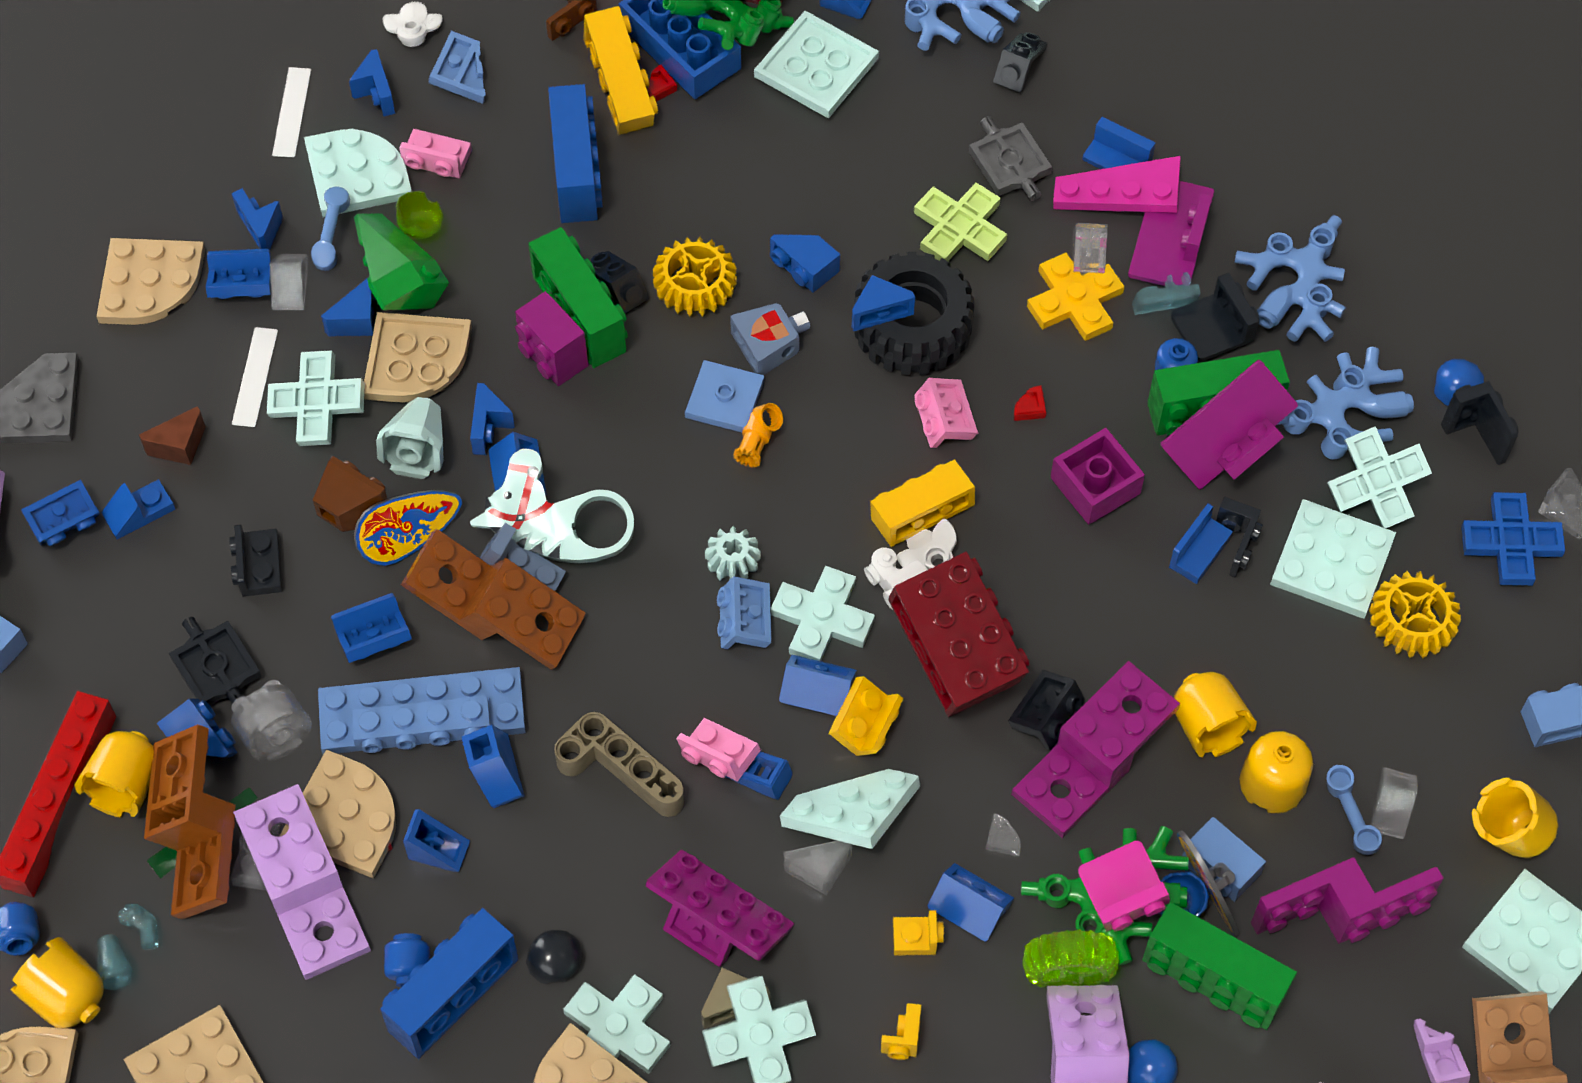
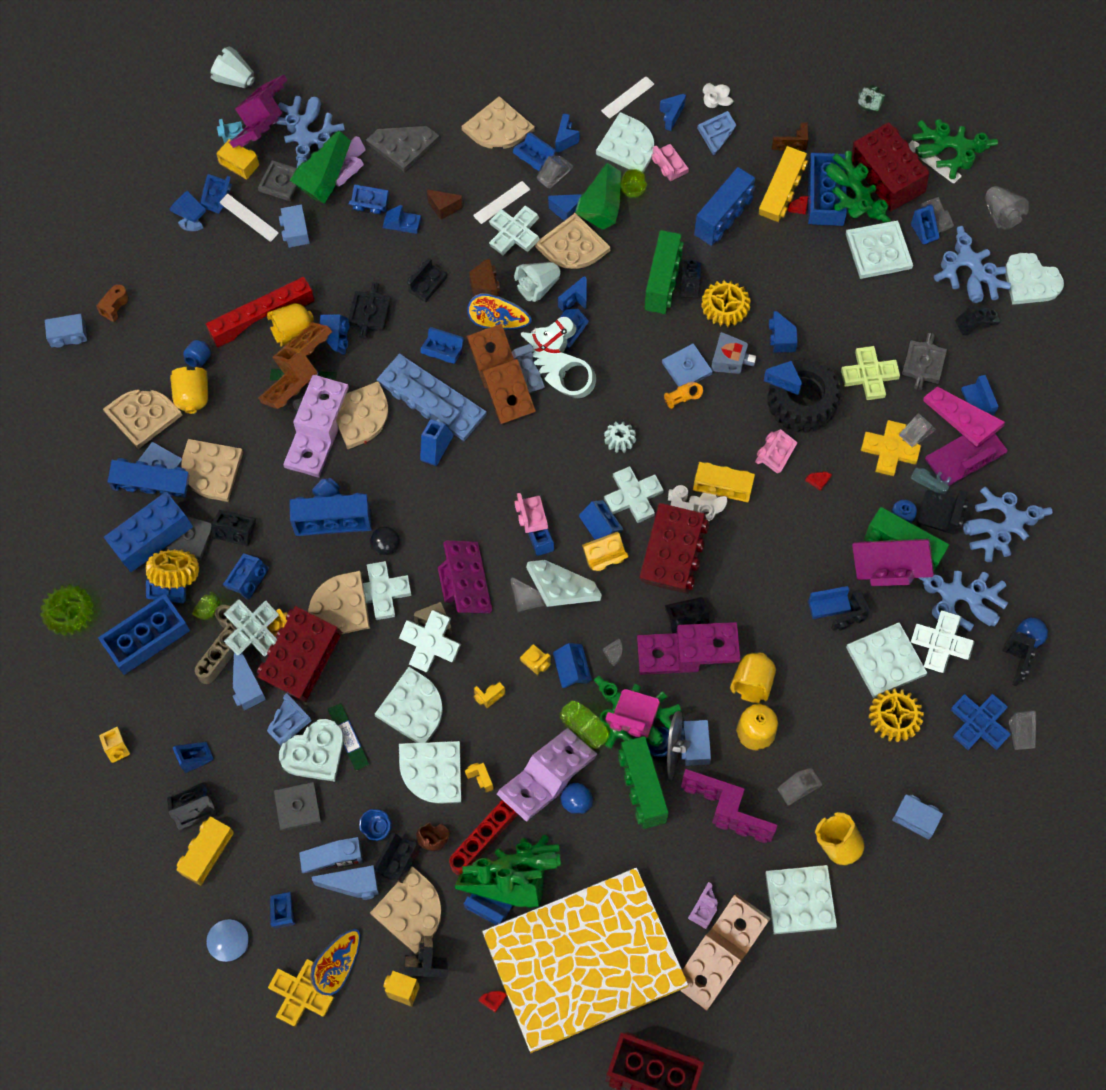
camera: 45 degrees right, 5 degrees up
(112, 963) = (218, 399): clear light blue cone -> none
(143, 920) = (246, 392): clear light blue arm -> none
(270, 721) = (365, 350): clear brick -> none
(323, 252) = (578, 170): medium blue bar -> none
(434, 843) = (381, 454): blue slope -> none
(551, 339) = (632, 281): magenta brick -> none
(624, 768) = (488, 489): dark tan beam -> none
(744, 613) = (600, 466): medium blue bracket -> none
(1097, 476) = (812, 533): magenta brick -> none
(1340, 785) = (783, 758): medium blue bar -> none

